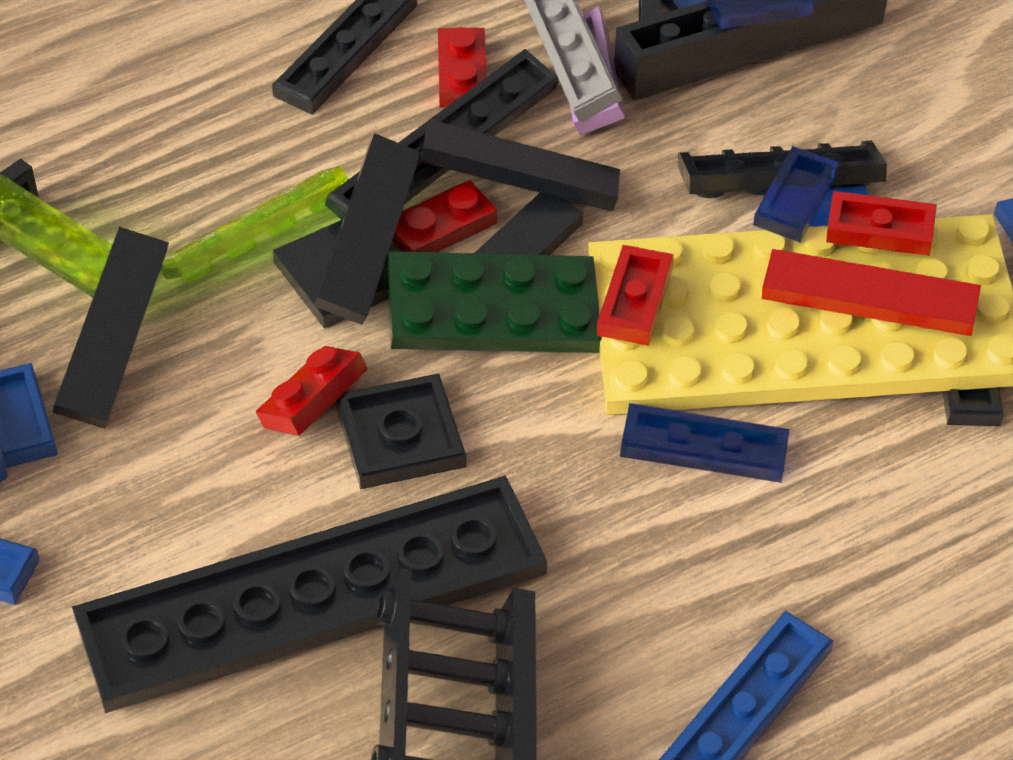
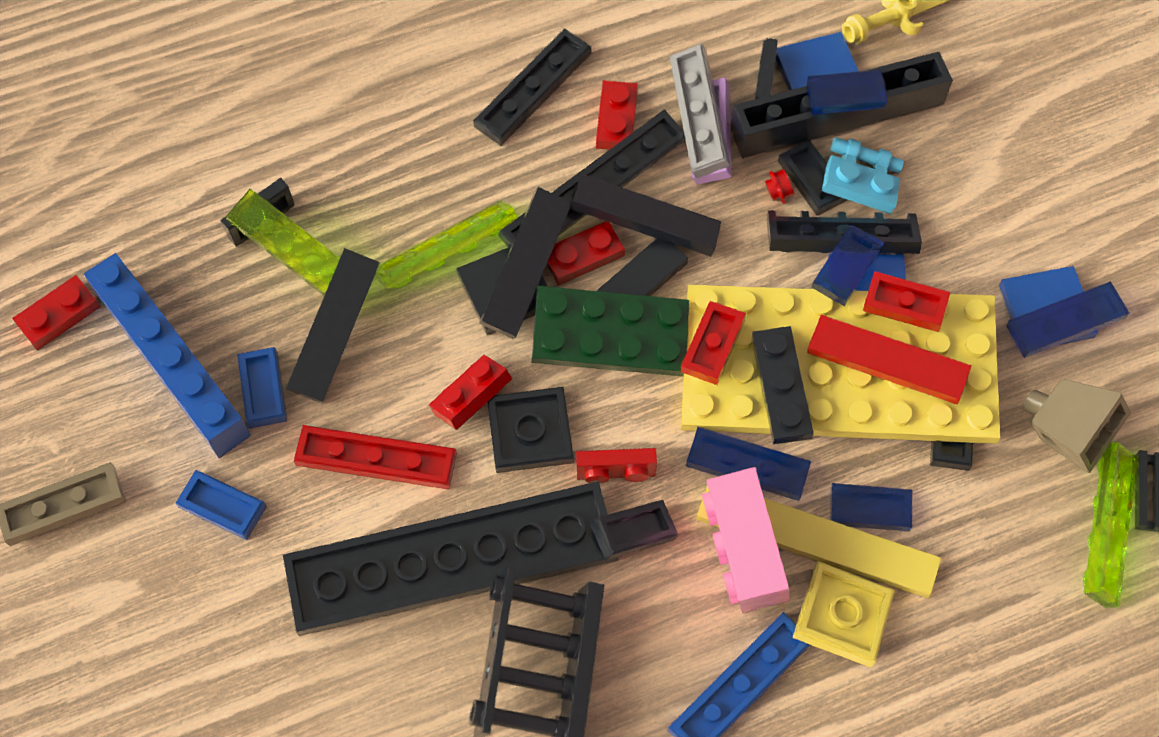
camera: 10 degrees right, 15 degrees up
(188, 483) = (375, 457): none -> red tile
(527, 453) = (631, 464): none -> red plate
(563, 528) = (634, 529): none -> black tile
(689, 124) = (779, 186): none -> red plate
(723, 516) = (746, 541): none -> bright pink brick
(730, 114) = (807, 172): none -> black tile
(736, 337) = (782, 385): none -> black plate
(795, 102) = (860, 183): none -> medium azure plate
(816, 521) = (849, 549): none -> light yellow tile
(869, 604) = (844, 614): none -> light yellow tile
(879, 478) = (871, 507): none -> clear blue tile

